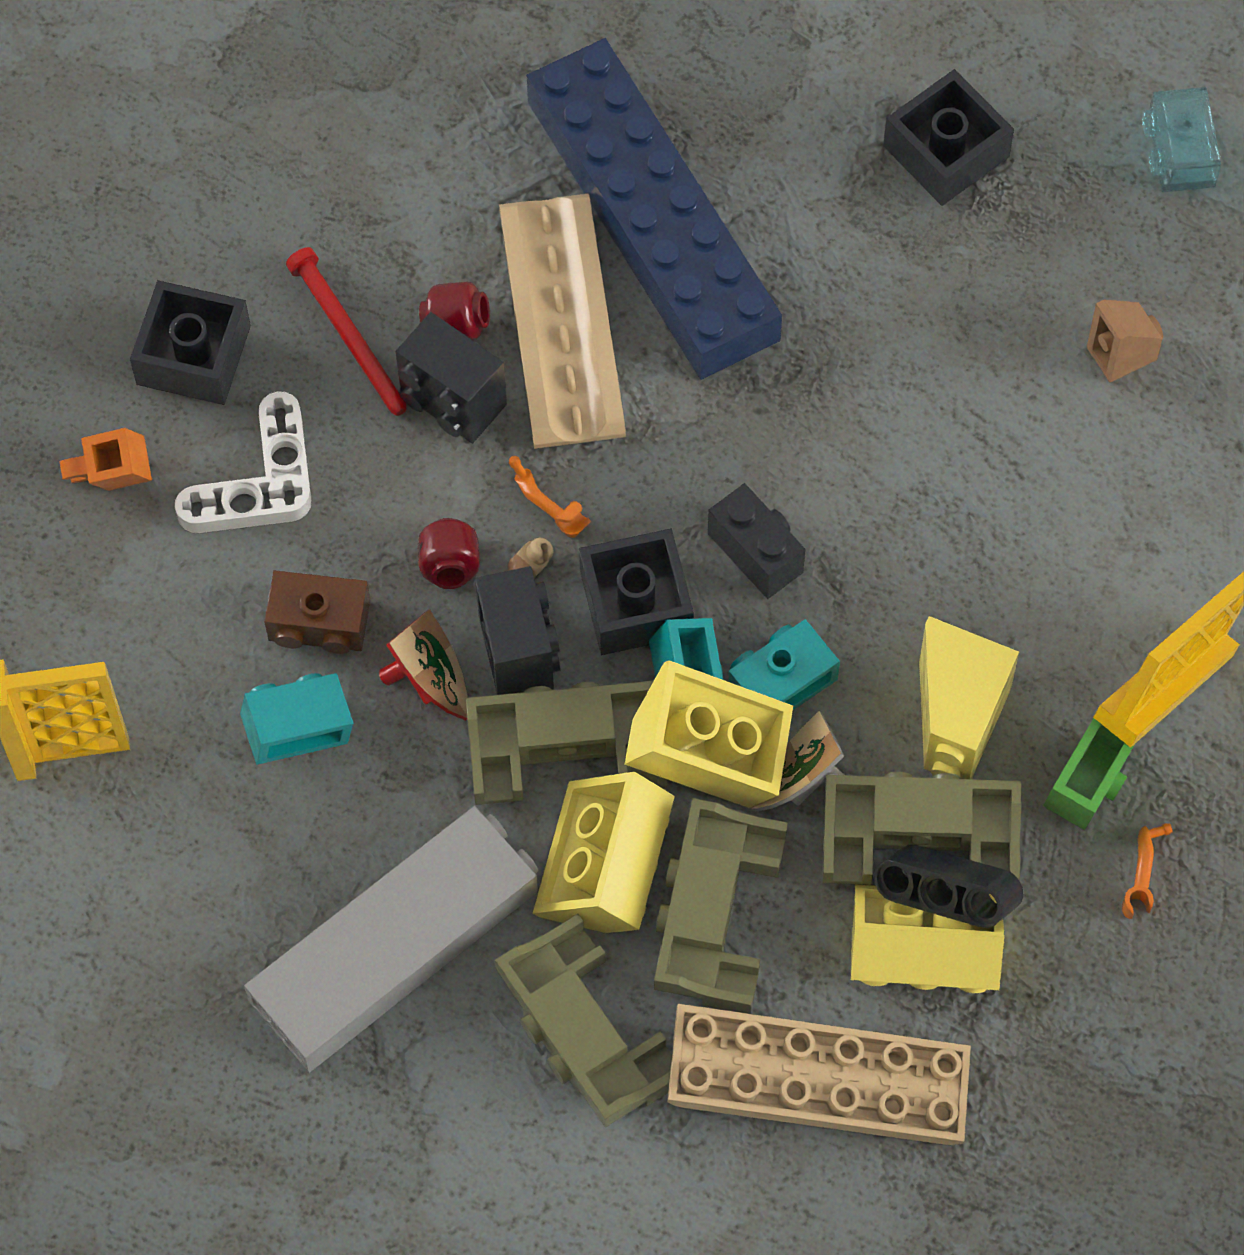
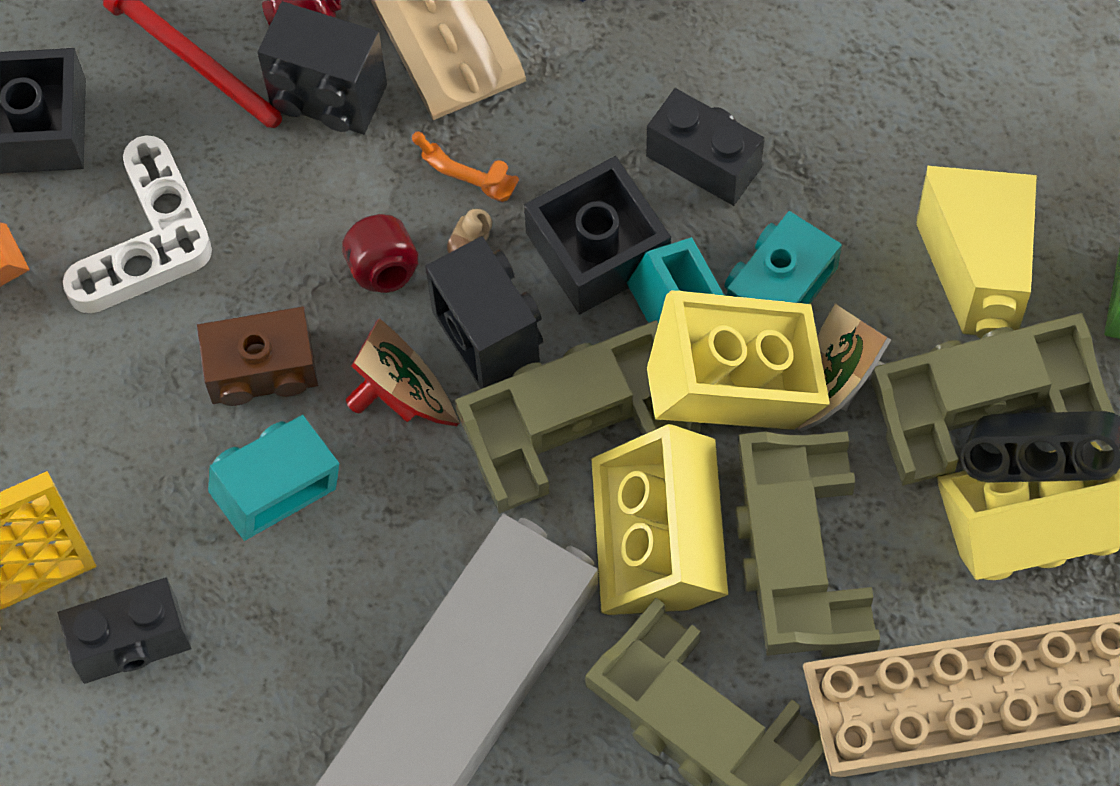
camera: 15 degrees left, 0 degrees up
(134, 809) = (124, 630): none -> black brick

